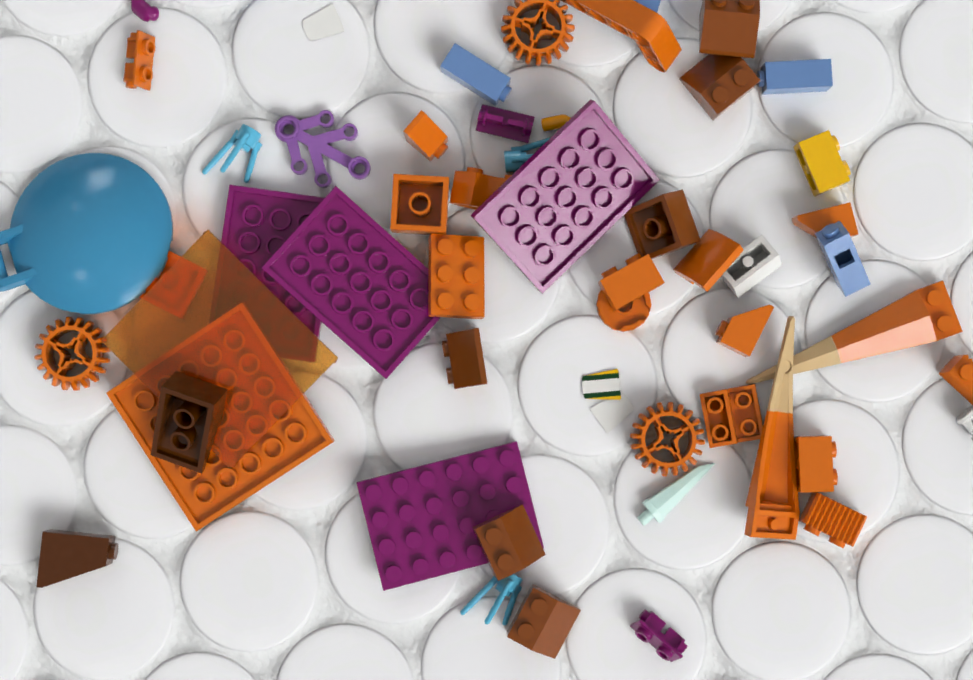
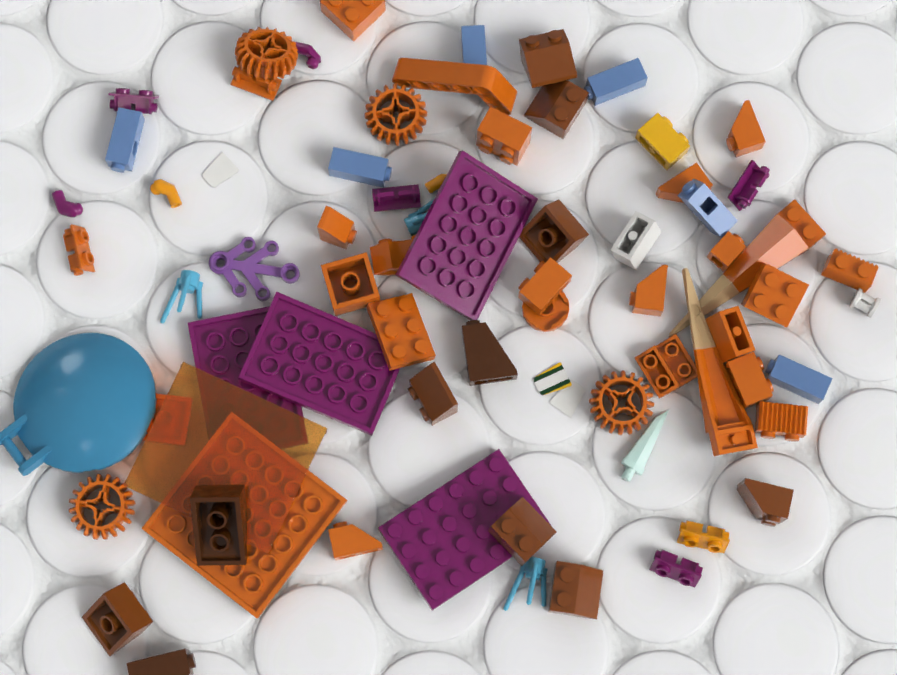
camera: 20 degrees left, 10 degrees down
(50, 478) = (117, 618): none -> dark orange slope
(259, 26) = (168, 189): none -> light orange arm
(324, 485) = (351, 541): none -> orange slope
(537, 334) = (485, 356): none -> reddish brown slope
(646, 97) = (503, 136): none -> orange brick
(708, 259) = (600, 246): orange slope -> none
(711, 620) = (713, 540): none -> light orange hinge
(785, 607) = (766, 501): none -> dark orange slope
(813, 407) = (730, 334): none -> orange brick
(845, 312) = (726, 251): none -> orange brick
(868, 481) = (798, 378): none -> medium blue brick
(879, 381) = (774, 294): none -> orange brick
(890, 252) = (745, 190): none -> magenta hinge
(917, 185) = (745, 133): none -> orange slope

